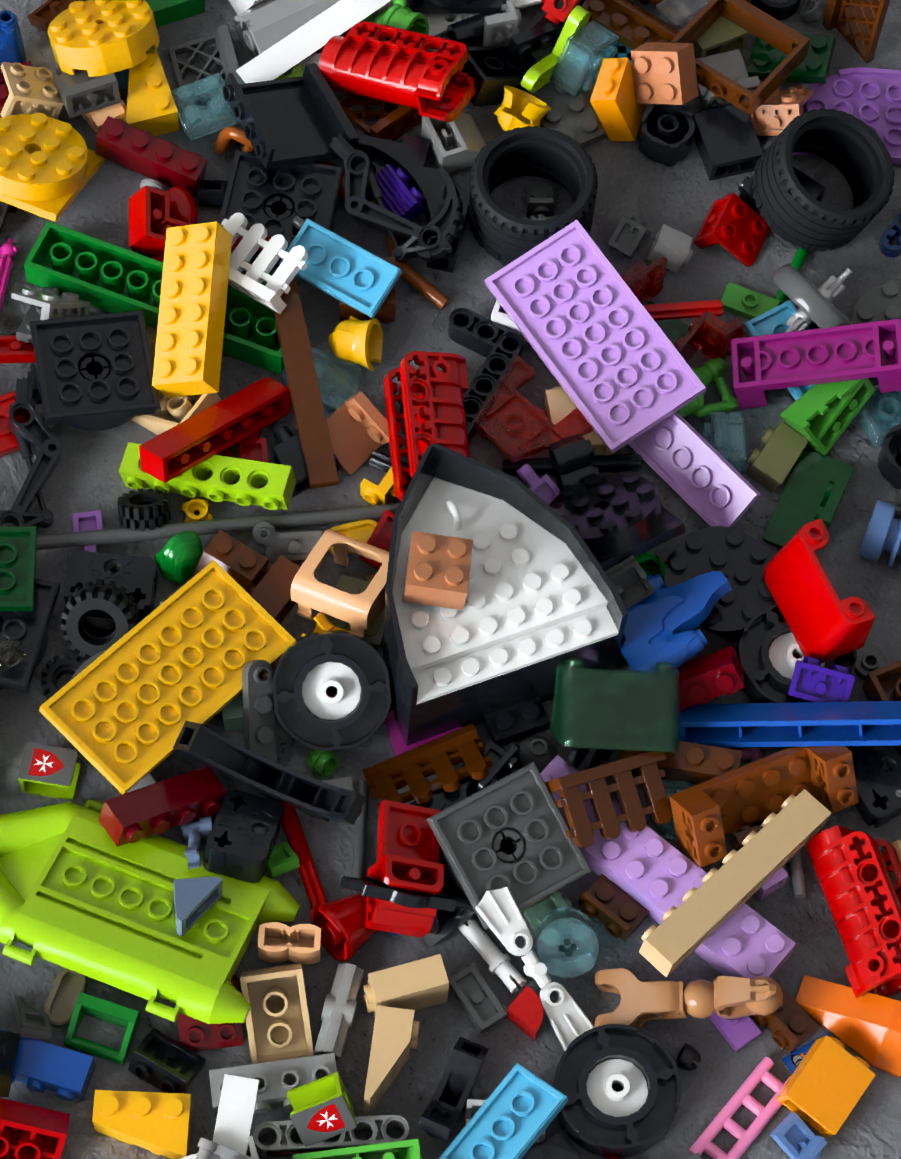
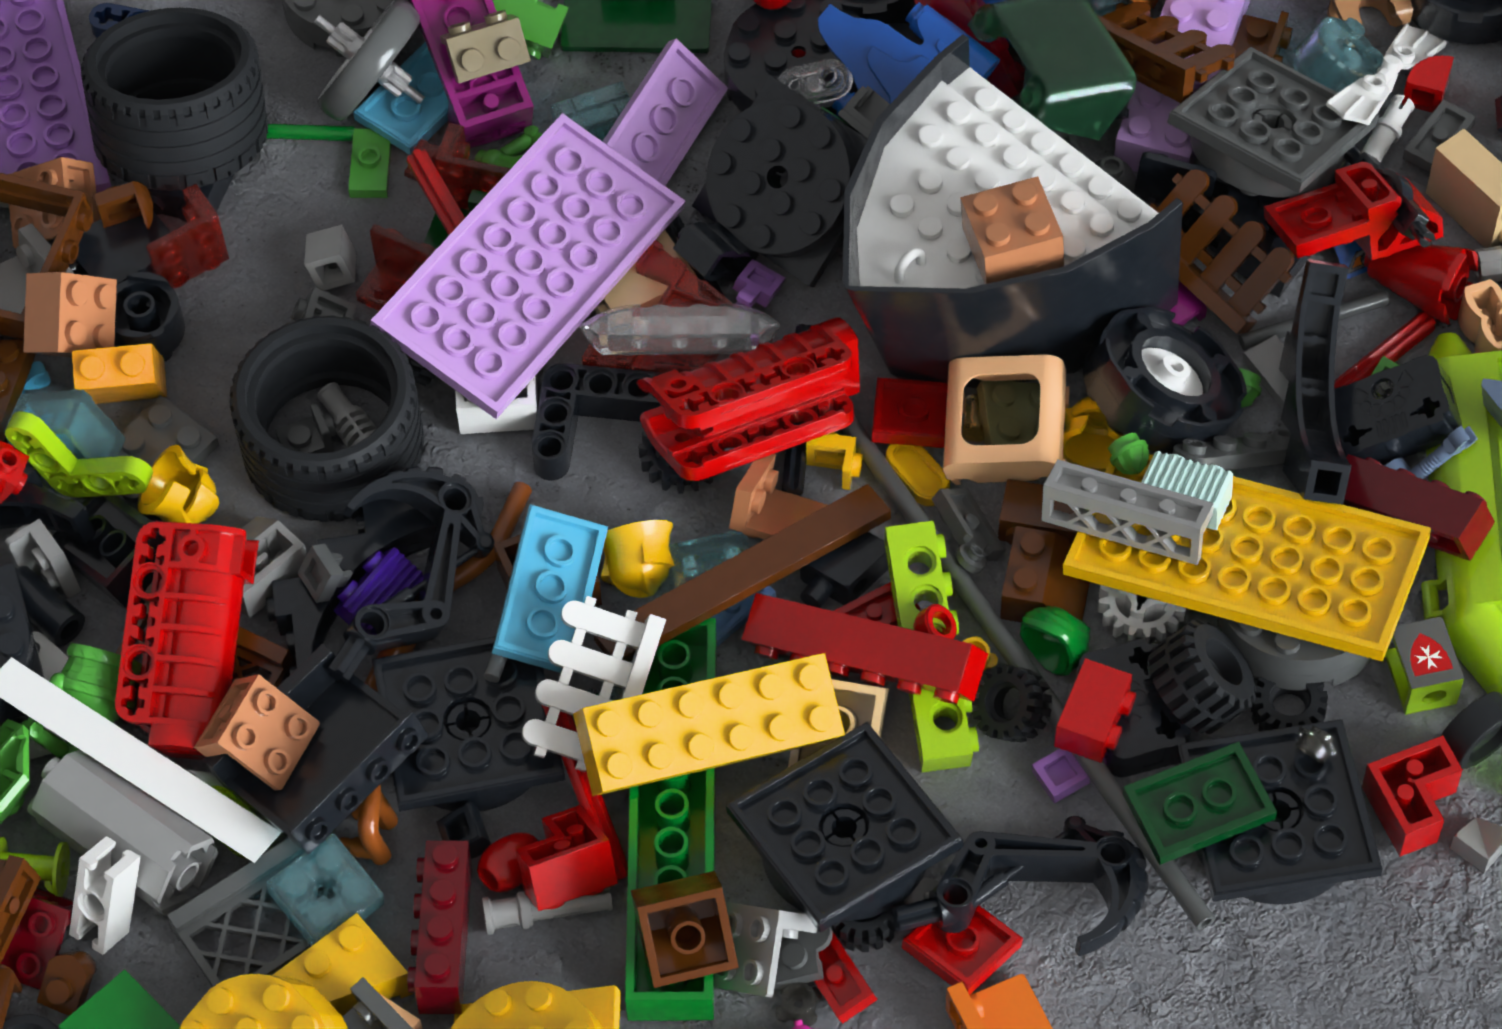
camera: 105 degrees left, 5 degrees down
(71, 256) = (684, 929): none -> reddish brown slope
(104, 541) = (1093, 711): none -> red brick
(203, 471) = (924, 621): none -> red piece
(227, 602) = (1125, 504): none -> light grey fence
(227, 649) = (1192, 479): none -> light aqua brick
(276, 634) = (1129, 454): none -> bright green plate
(313, 88) = (259, 730): none -> nougat bracket
(416, 158) = (322, 572): none -> dark grey tile
(511, 395) = (679, 329): none -> clear brick
(676, 562) = (812, 80): none -> clear plate
(714, 180) = (192, 247): none -> clear red bracket
(734, 228) = (264, 211): red bracket -> none
(753, 134) = (124, 203): none -> reddish brown plate
(776, 455) = (592, 58): olive brick -> none
(784, 359) = (485, 46): none -> dark tan bracket

